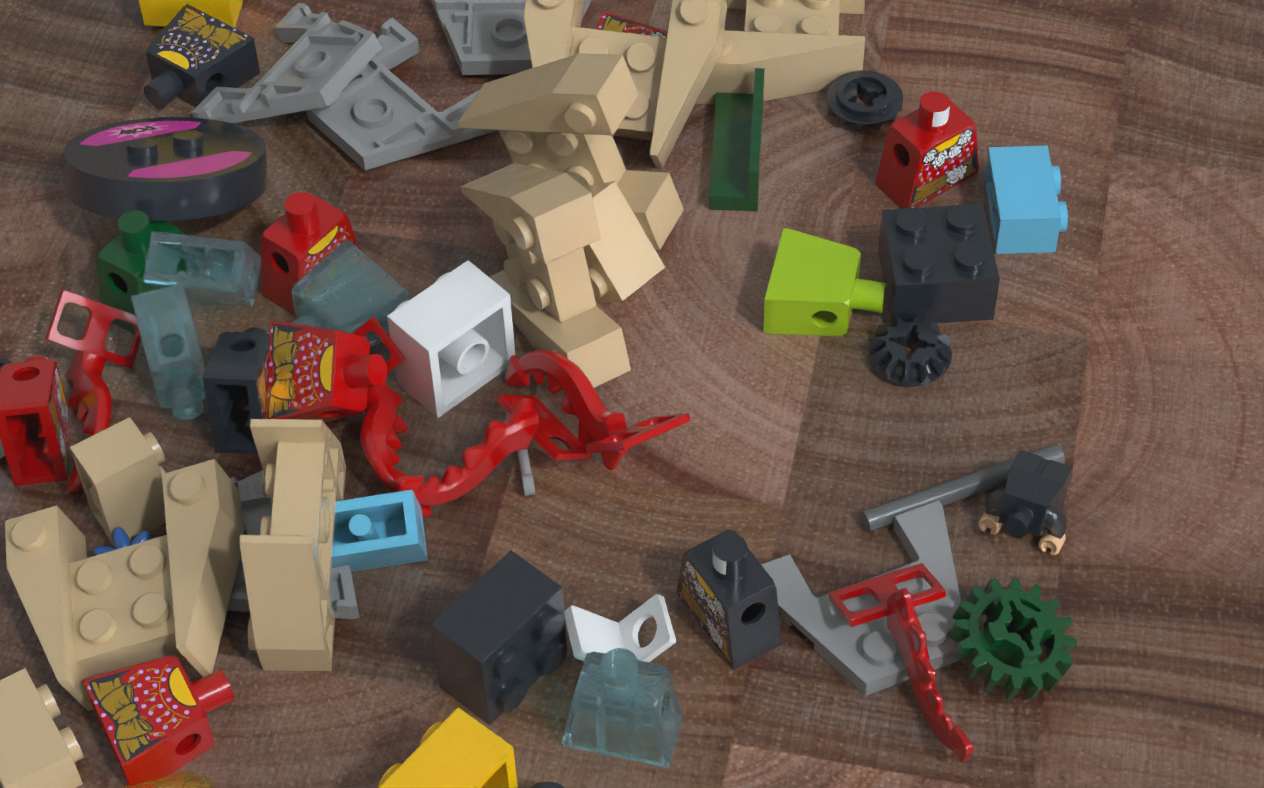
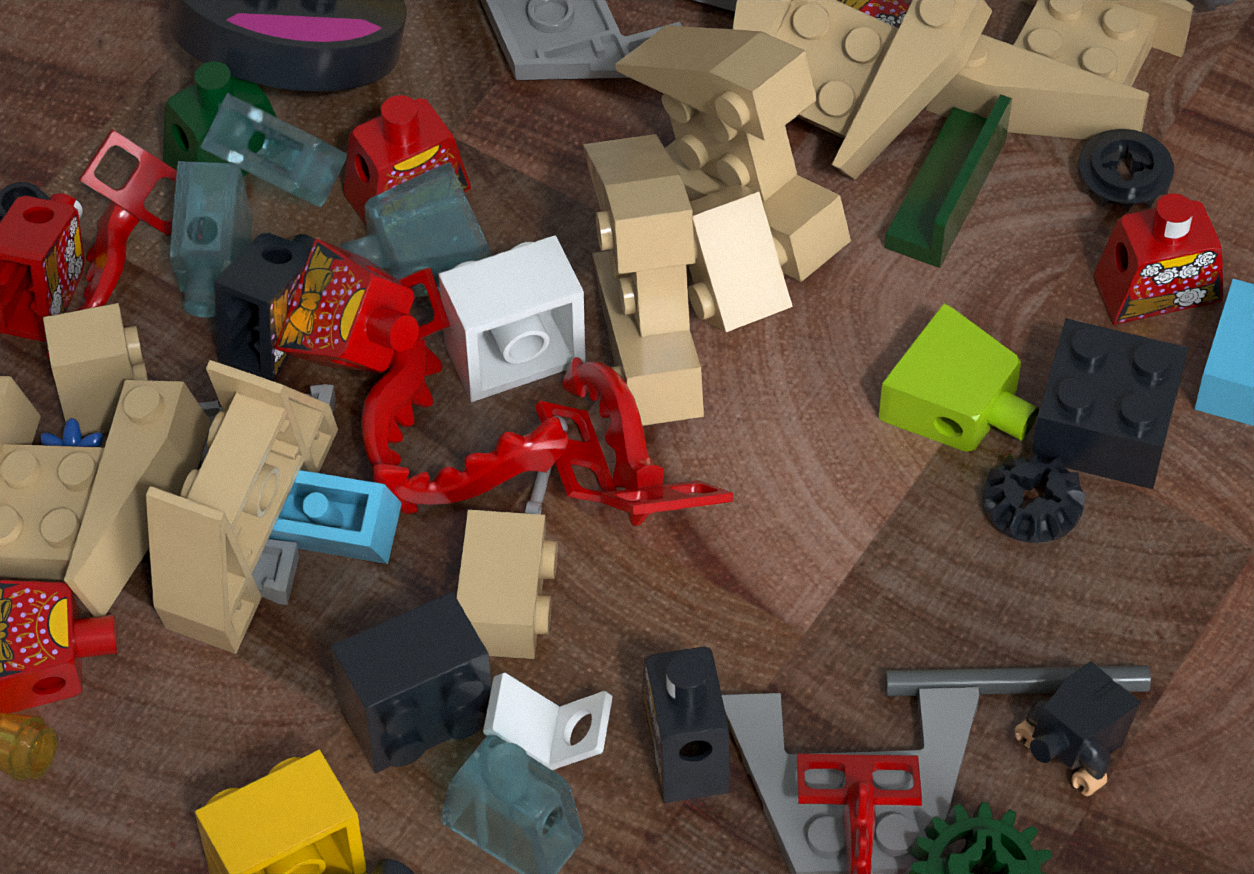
camera: 20 degrees right, 5 degrees up
(533, 526) = (503, 580): none -> tan brick

